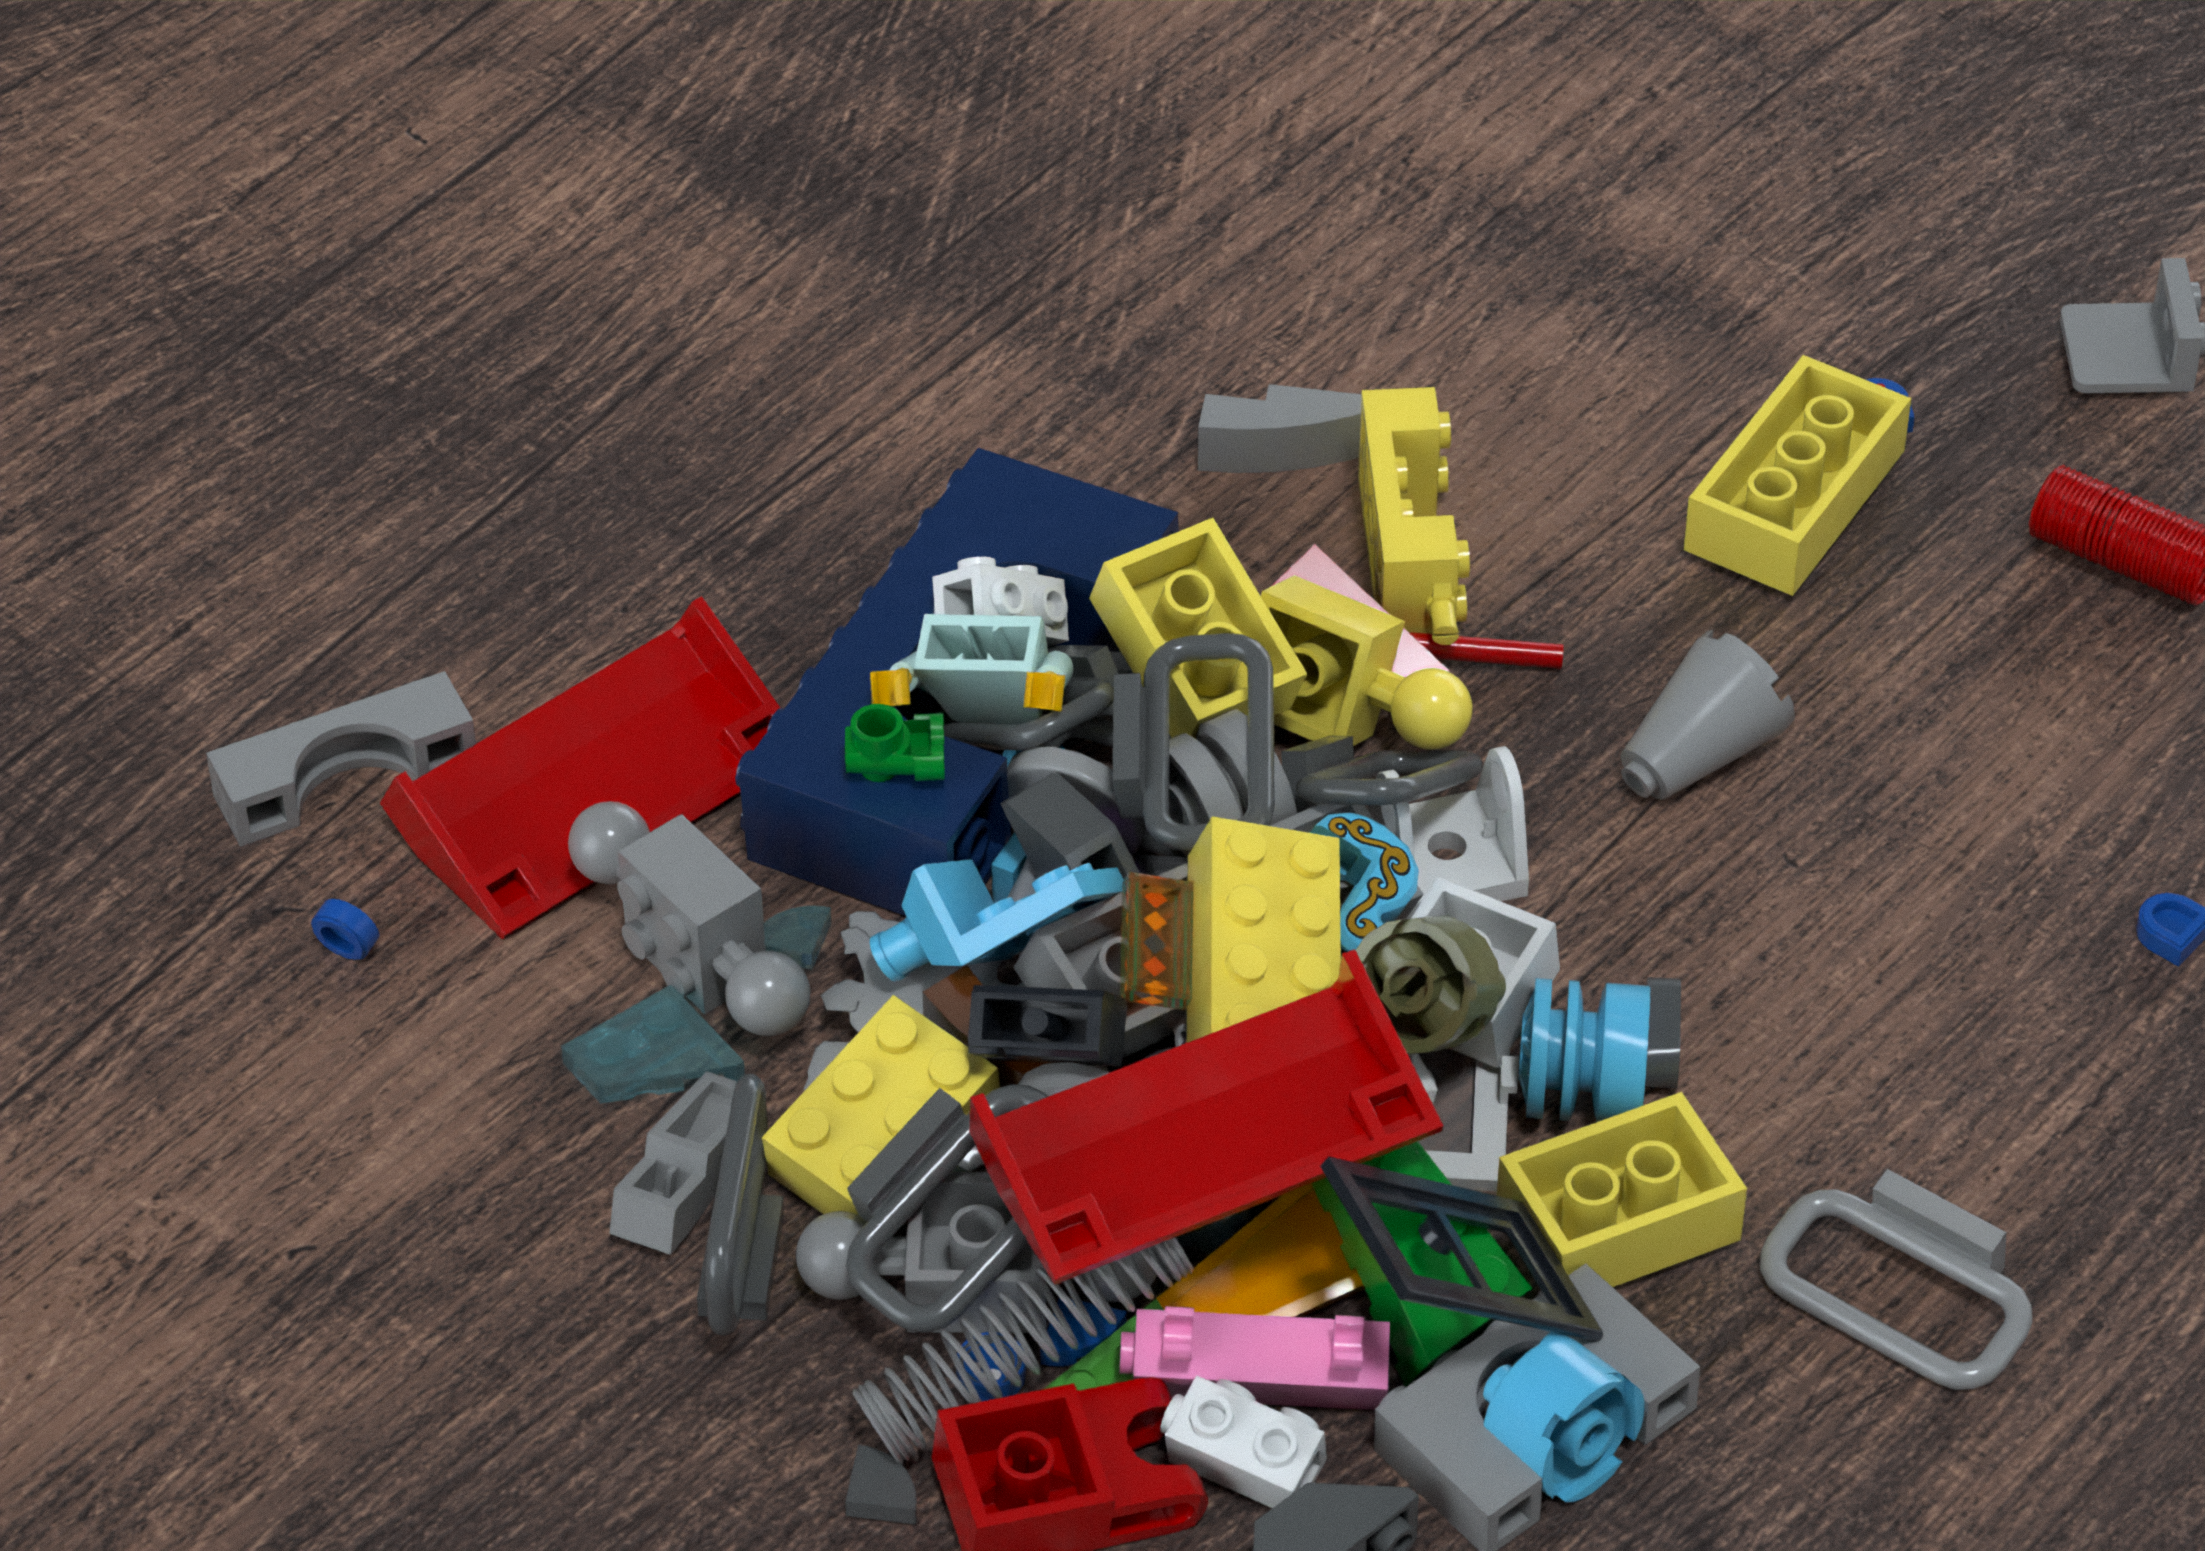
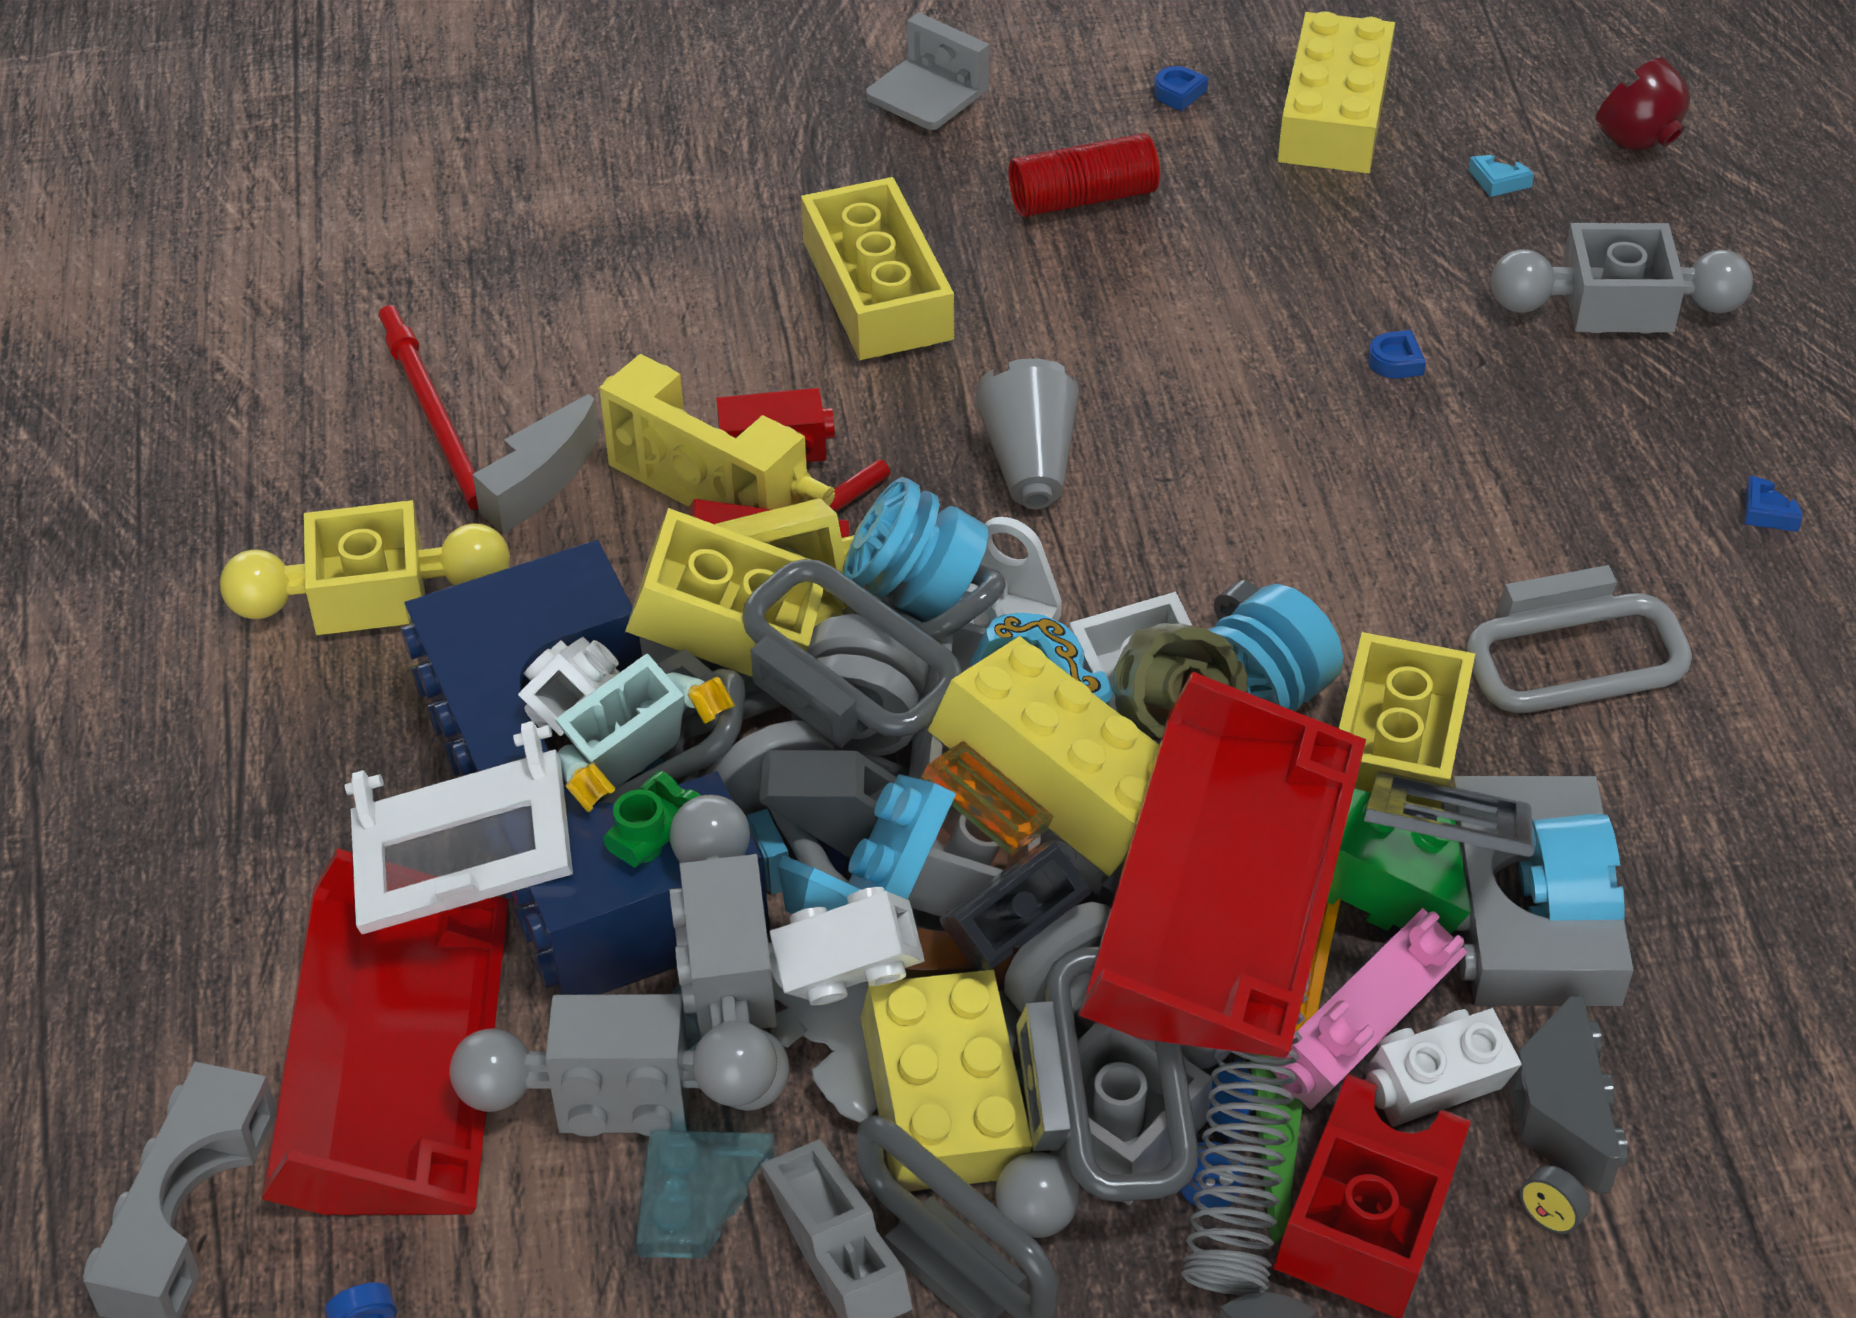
camera: 50 degrees left, 0 degrees up
(778, 652) = (459, 837): none -> white piece
(821, 878) = (723, 950): none -> light grey brick
(894, 947) = (845, 946): none -> white brick
(1034, 405) = (360, 567): none -> light yellow brick
(1330, 249) = (405, 347): none -> red bar
(1396, 714) = (916, 550): none -> medium azure wheel
(1508, 546) = (792, 408): none -> red brick

